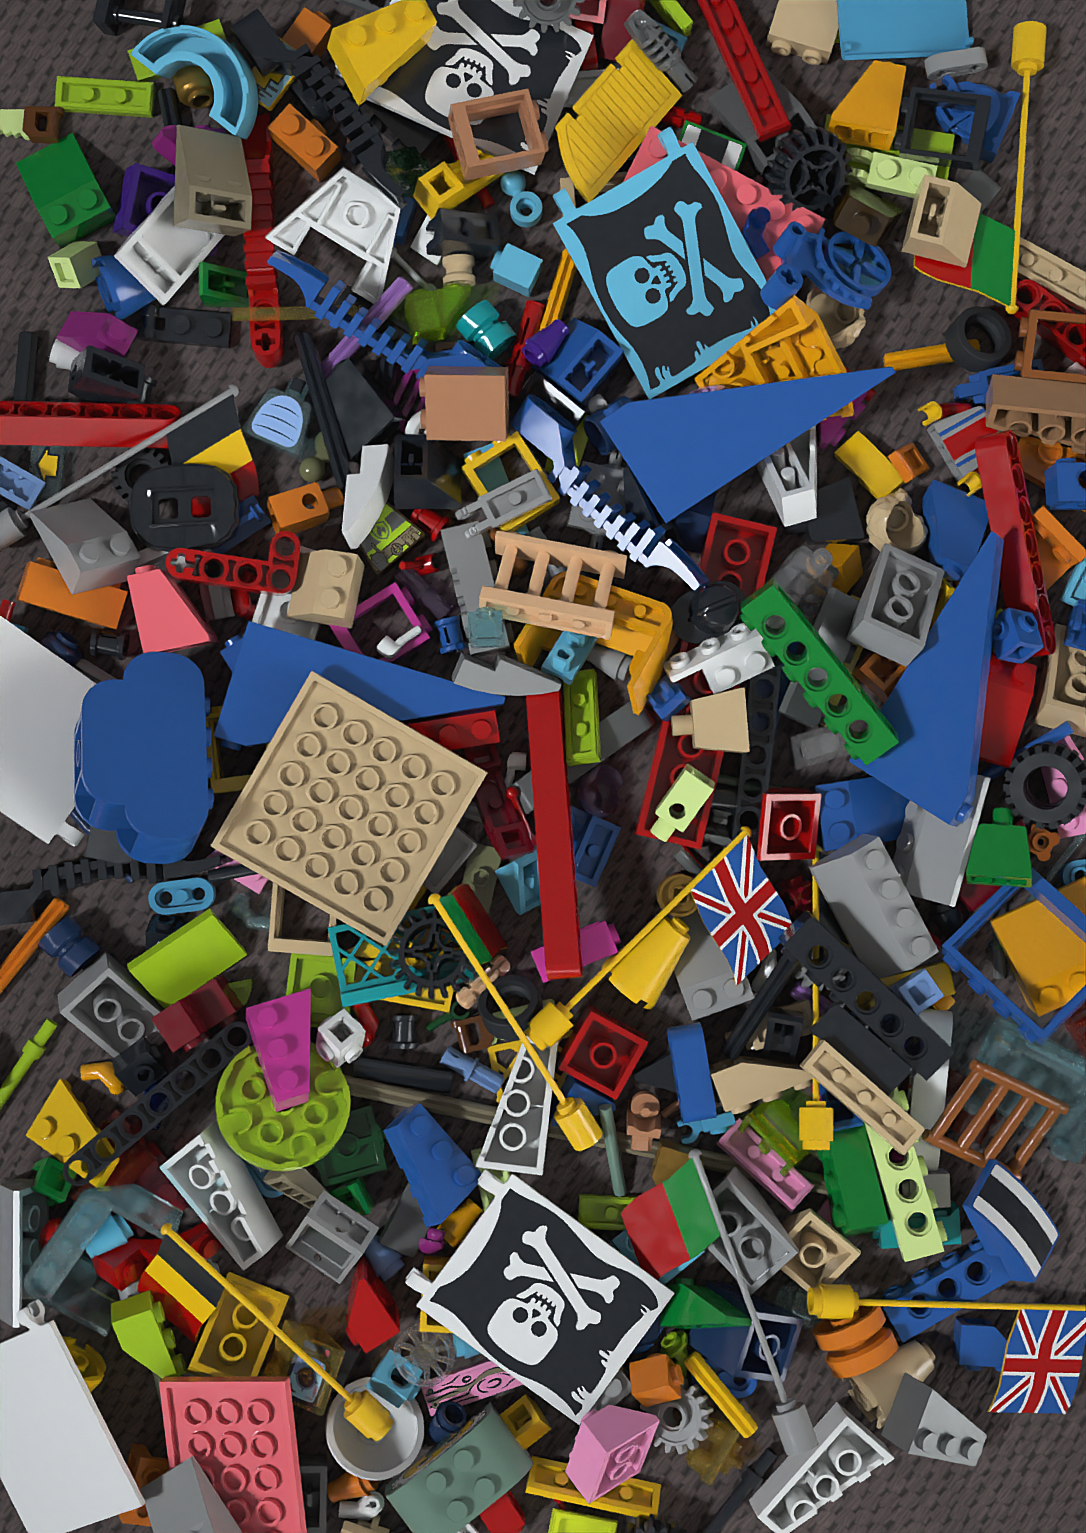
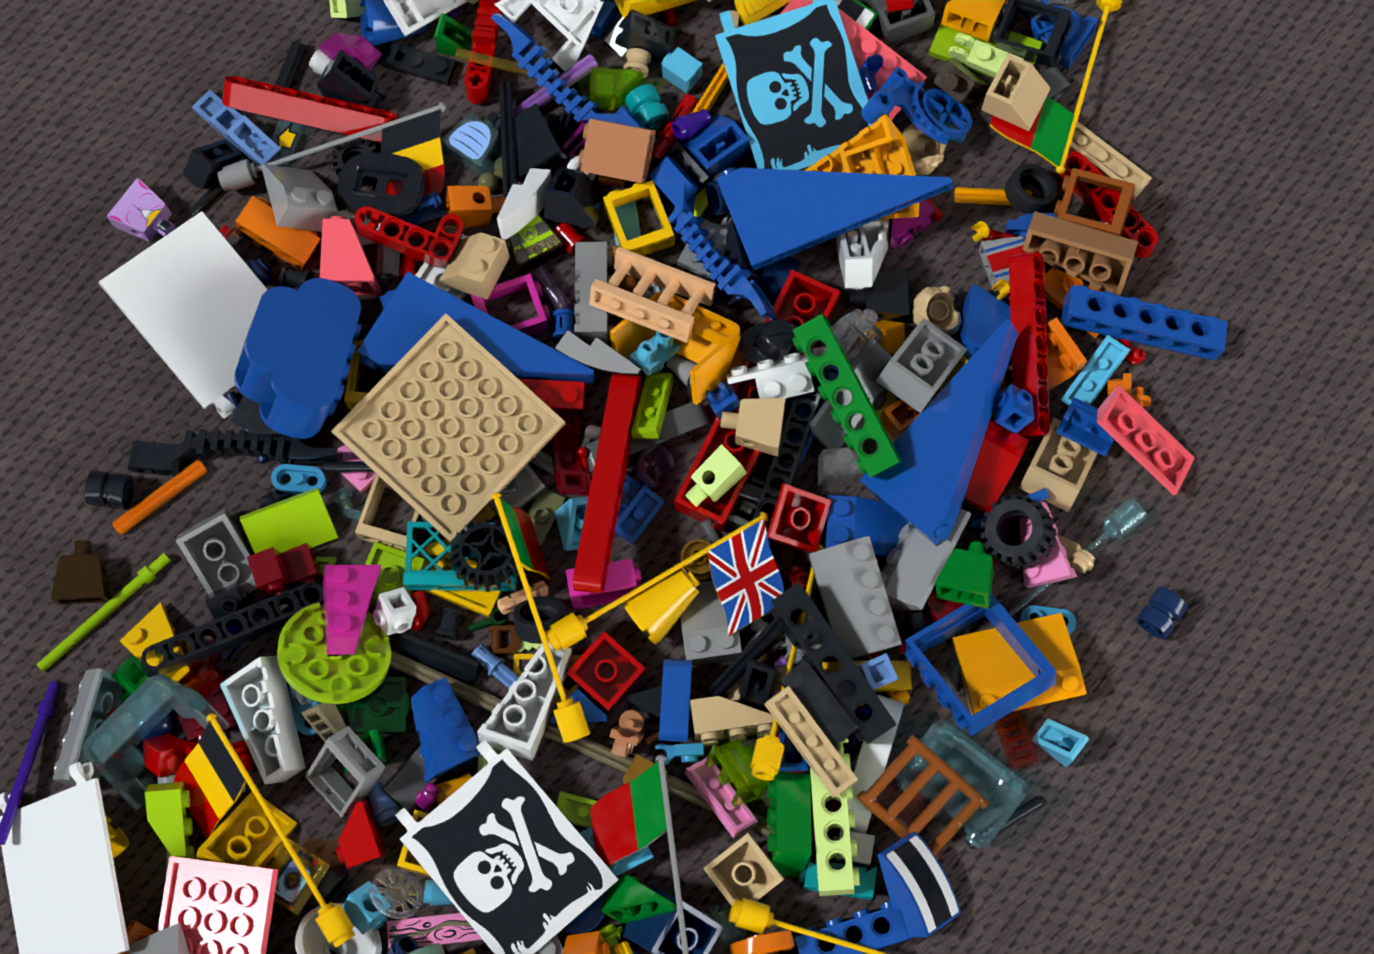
camera: 15 degrees right, 15 degrees down
(72, 949) = (197, 496): dark blue wheel -> none
(104, 1072) = (198, 606): light orange arm -> none
(111, 1235) = (162, 729): medium azure cone -> none
(389, 648) = (514, 320): white hand -> none
(410, 271) = (590, 43): light grey hinge -> none
(422, 564) = (556, 269): red hand -> none
(486, 628) = (590, 313): clear light blue plate -> none
(506, 502) = (629, 227): light grey hinge -> none
(513, 184) = (694, 12): medium azure plate -> none
(612, 1149) = (596, 756): sand green bar -> none
(753, 1230) = (696, 840): light grey slope -> none
(824, 167) = (939, 33): black gear -> none
(869, 466) = (926, 266): yellow slope -> none
(908, 462) = (957, 270): orange tile -> none
(1049, 841) = (1007, 592): orange plate -> none

